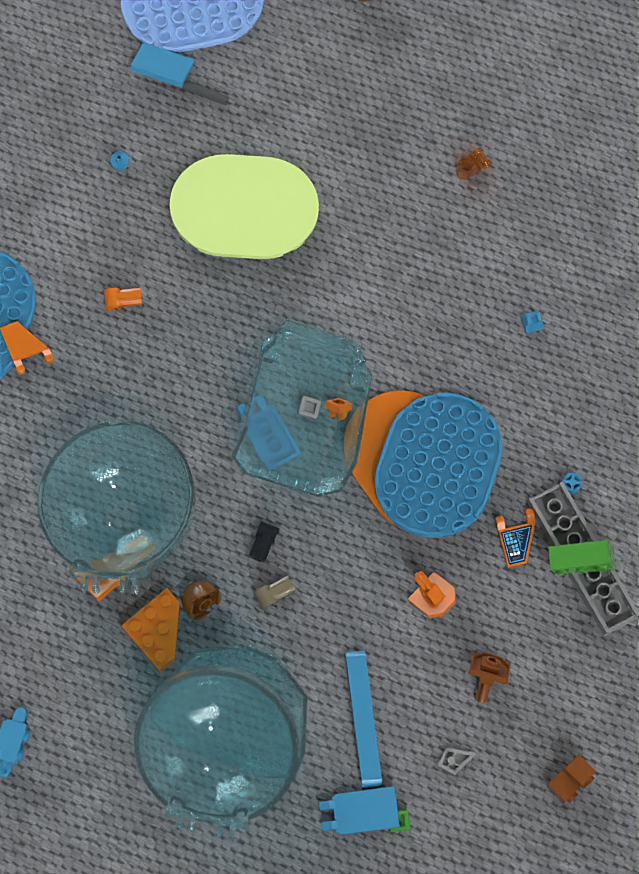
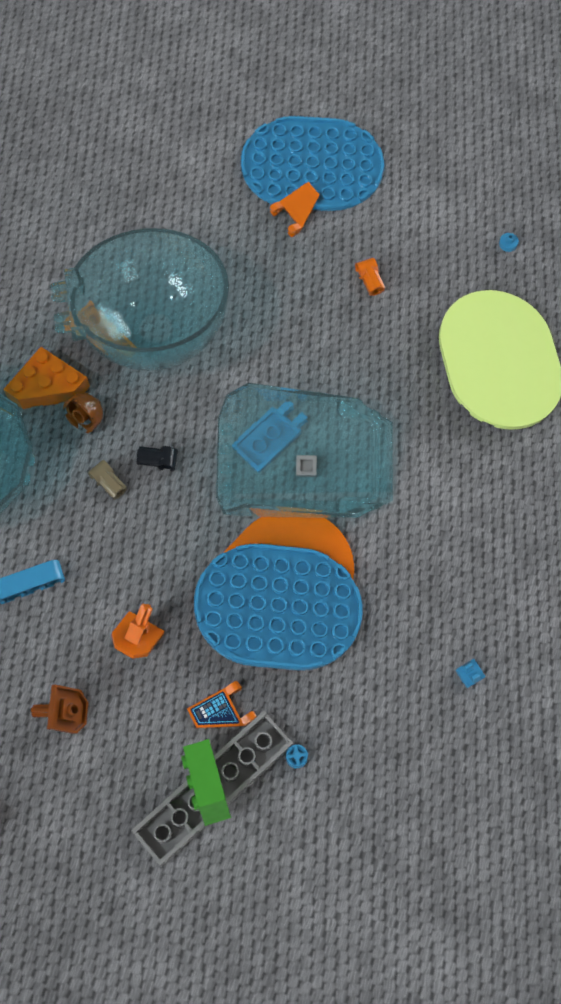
camera: 80 degrees right, 5 degrees down
(338, 406) = (314, 493): orange tile -> none

